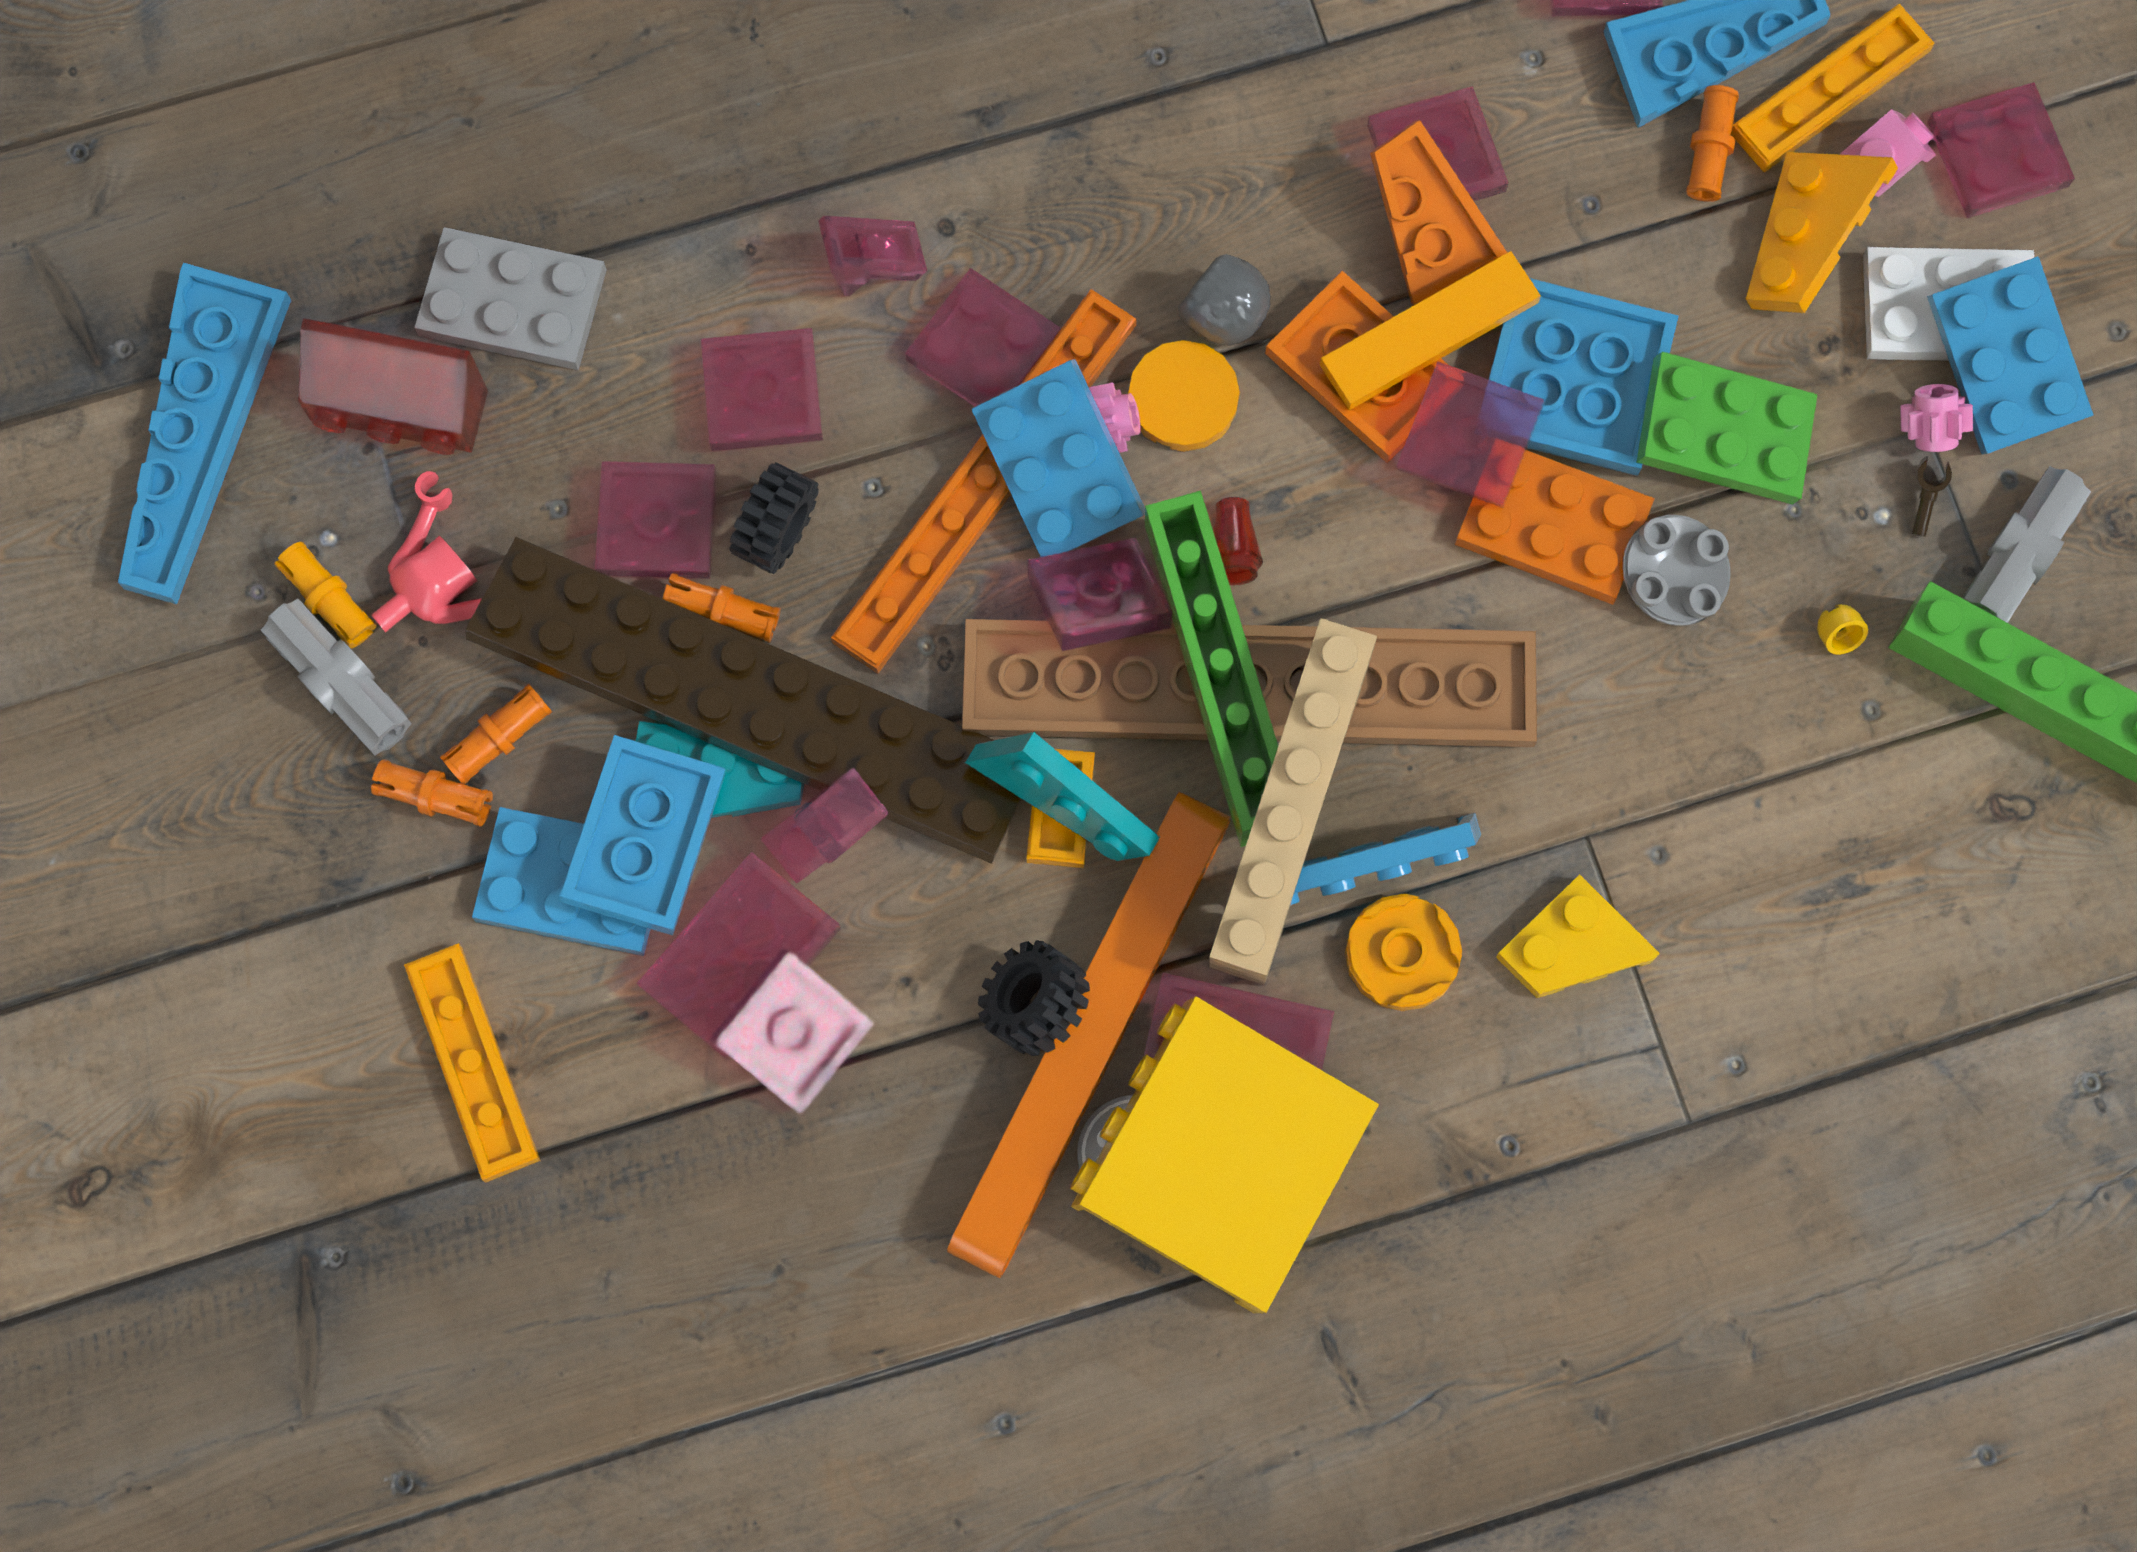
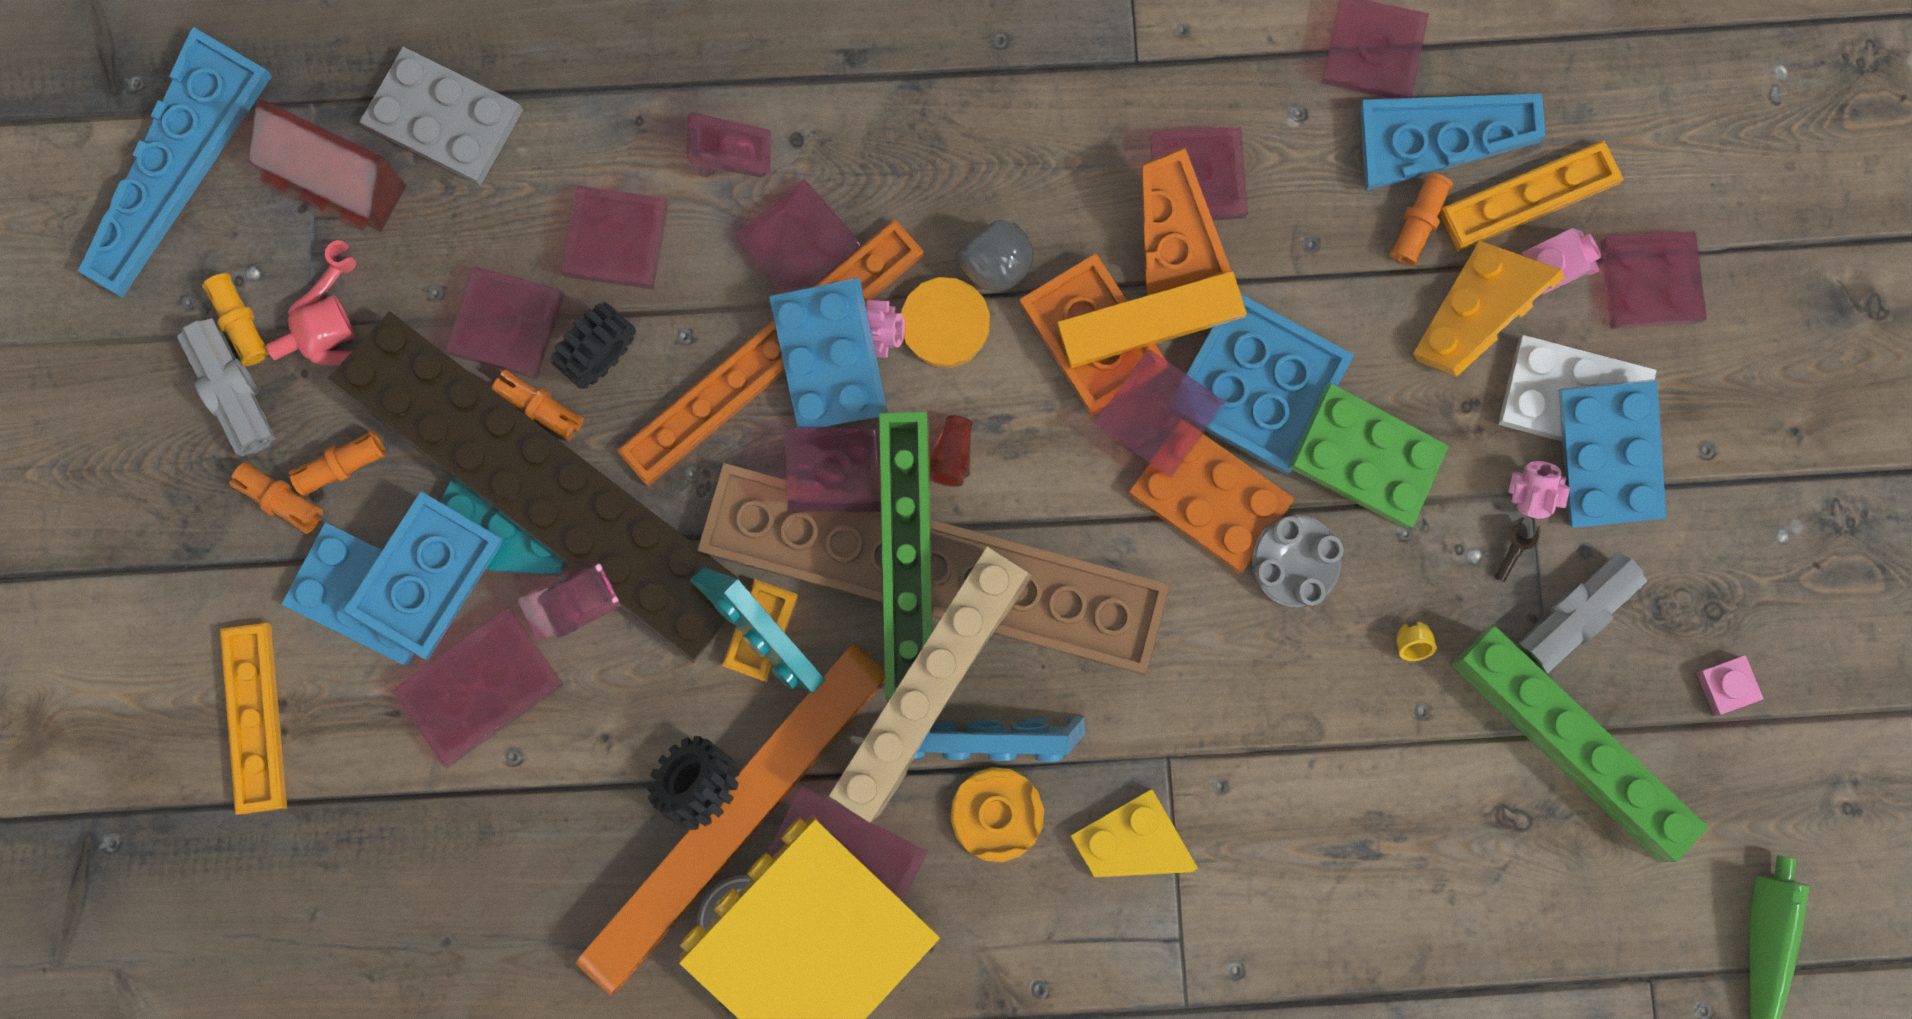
camera: 15 degrees right, 5 degrees up
(791, 1031) = (499, 760): clear pink plate -> none

